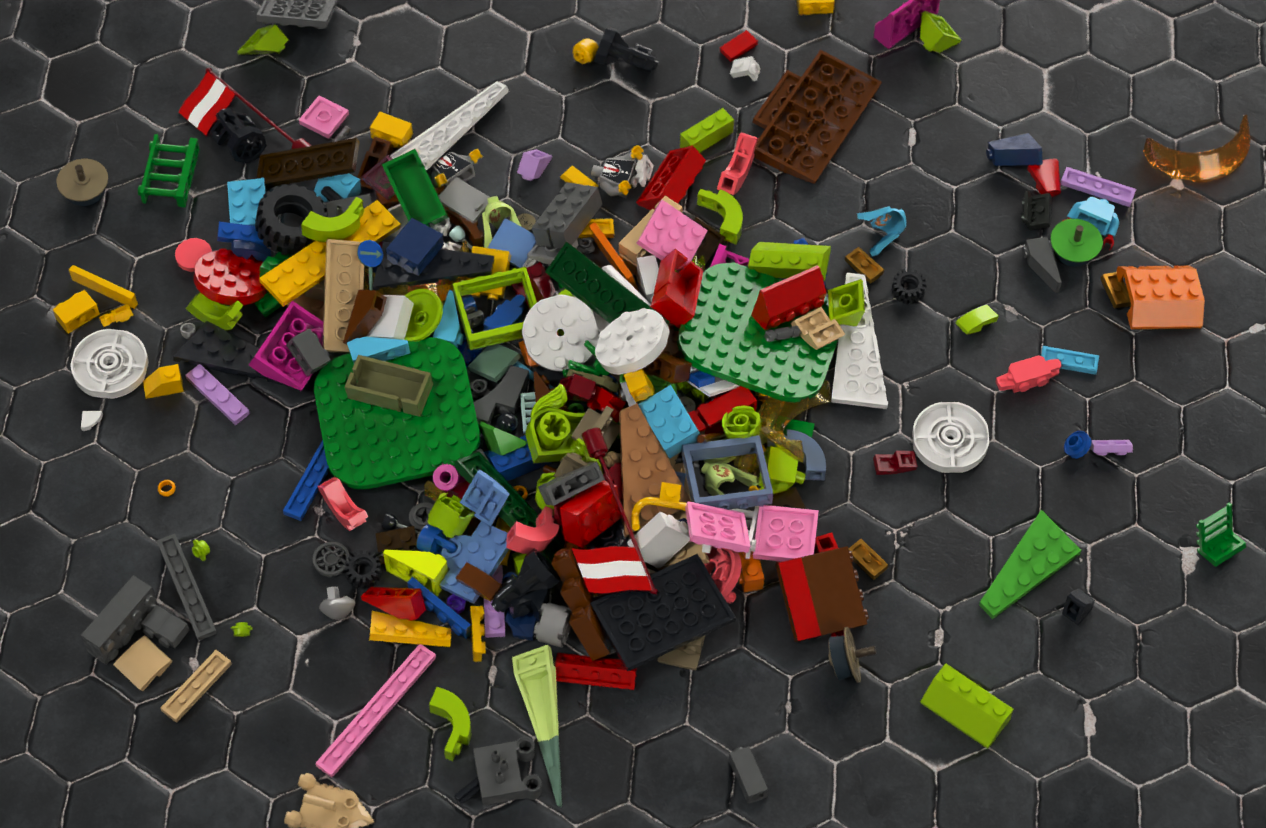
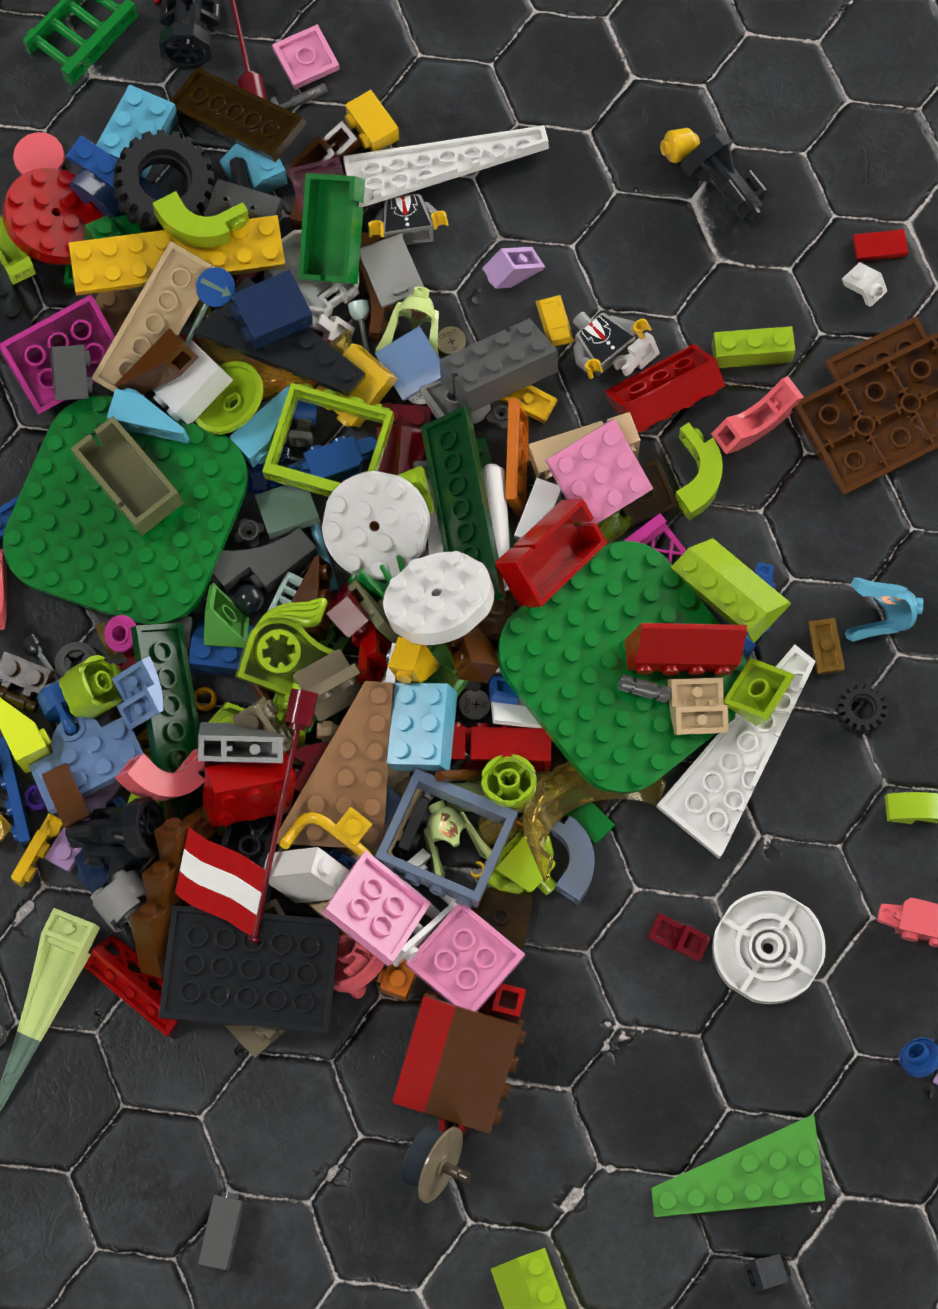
camera: 35 degrees right, 15 degrees up
(868, 559) = (553, 1044): pearl gold plate -> none

